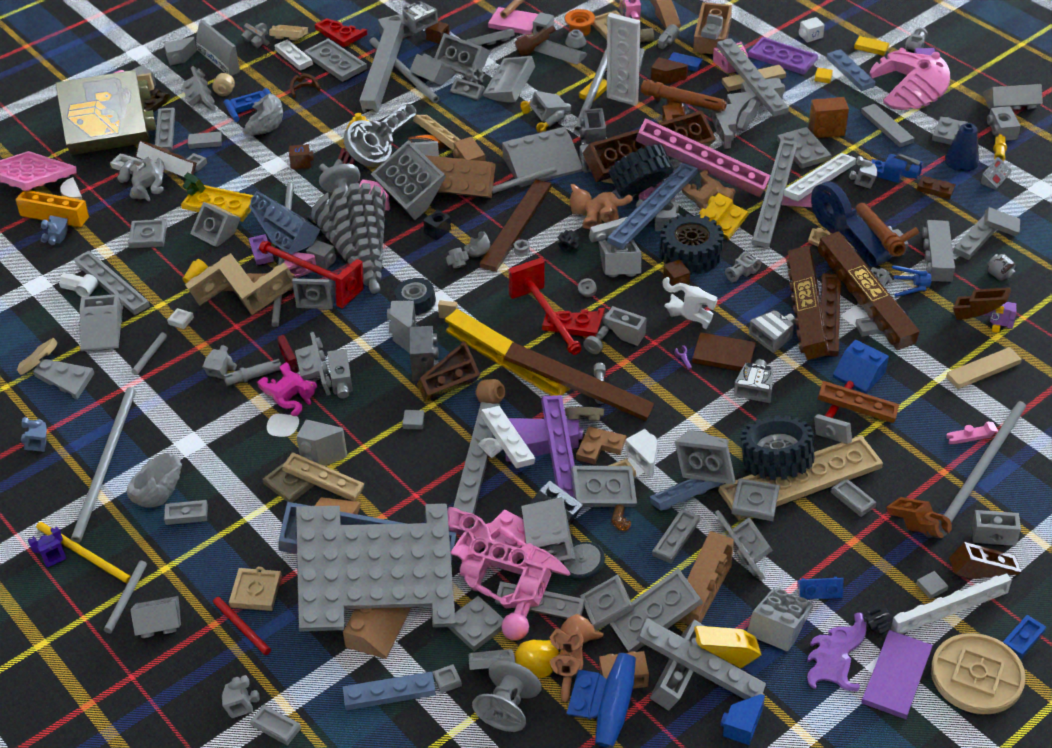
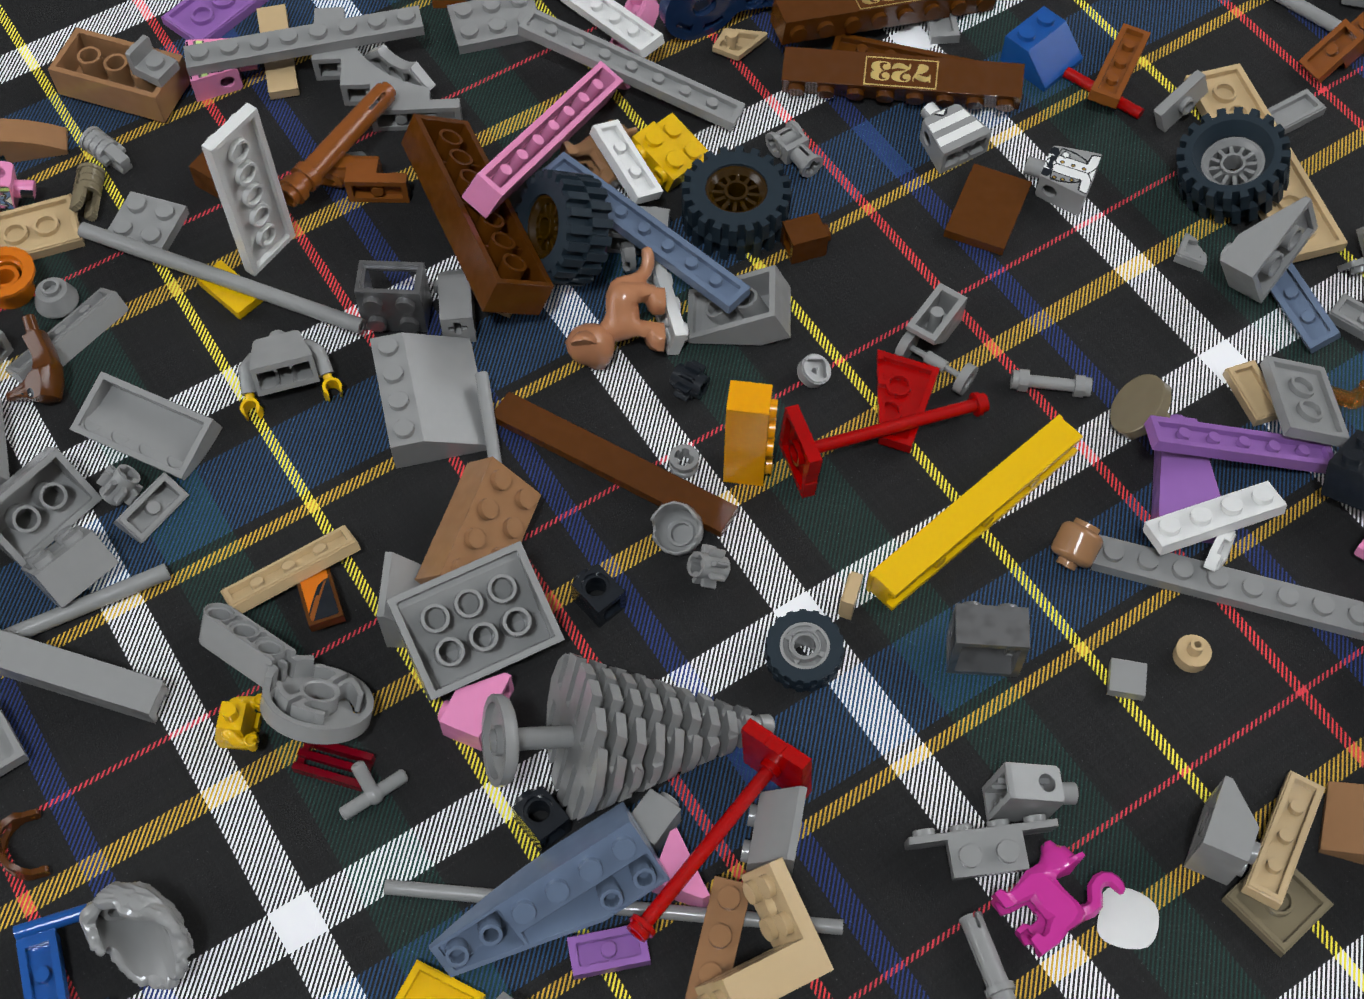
camera: 85 degrees left, 15 degrees up
(287, 353) = (949, 897): dark red tile -> none
(300, 156) = (301, 856): reddish brown brick -> none
(402, 318) = (908, 666): light grey slope -> none
(432, 445) = (1192, 653): none -> tan tile
(449, 374) = (1056, 613): reddish brown wedge -> none
(468, 149) = (388, 519): medium nougat brick -> none
(521, 237) = (749, 432): none -> light orange brick
(579, 381) = (1073, 406): reddish brown tile -> none
(598, 440) = (1185, 389): medium nougat plate -> none
(643, 450) = (1216, 340): white slope -> none
(683, 356) = (991, 260): medium lavender hand -> none
(692, 304) = (898, 221): white animal -> none
(693, 62) = (187, 141): blue tile -> none
(701, 194) = (626, 162): none -> white plate
(755, 499) = (1334, 214): light grey tile -> none

